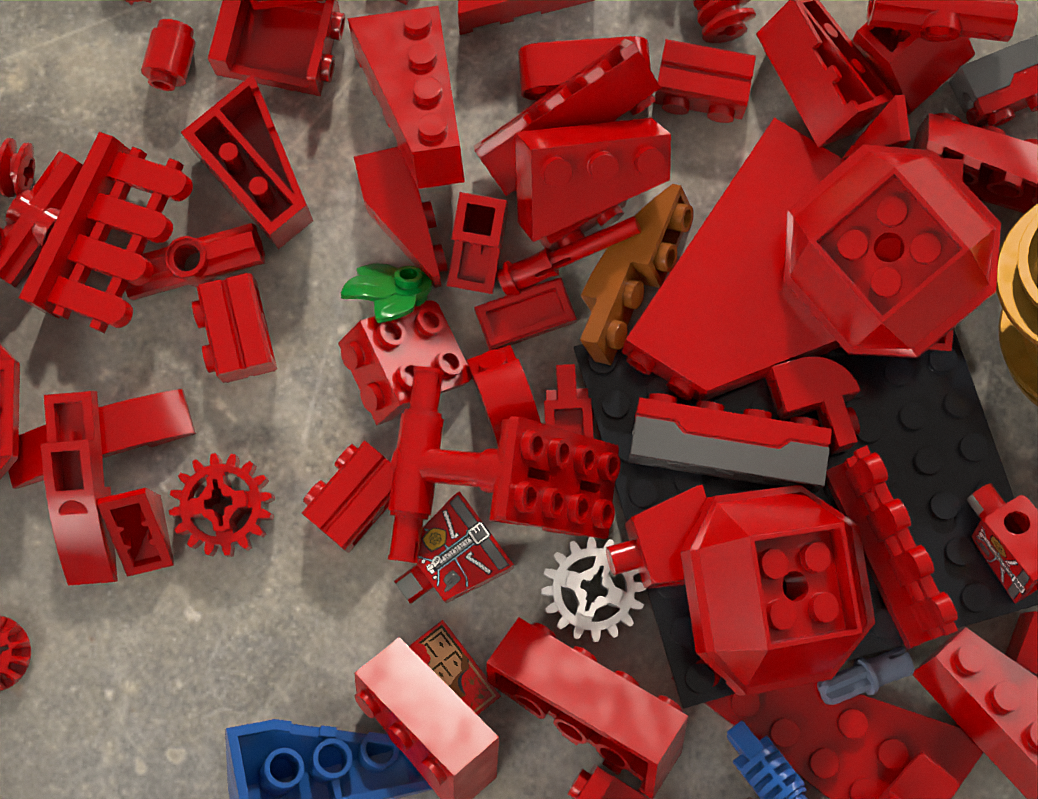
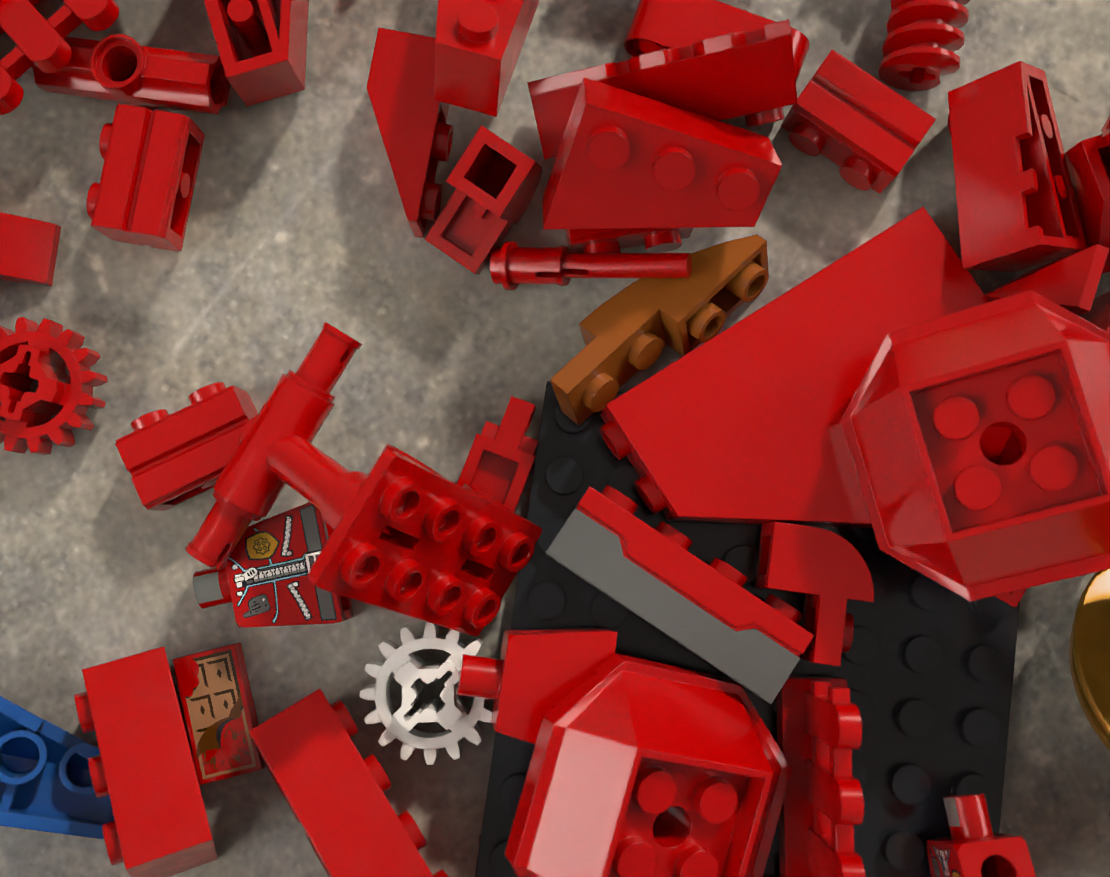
camera: 20 degrees right, 5 degrees up
(386, 354) = (339, 283): red bracket -> none
(391, 288) = (350, 212): green plate -> none
(502, 387) = (431, 404): red brick -> none
(525, 315) = (505, 318): red tile -> none

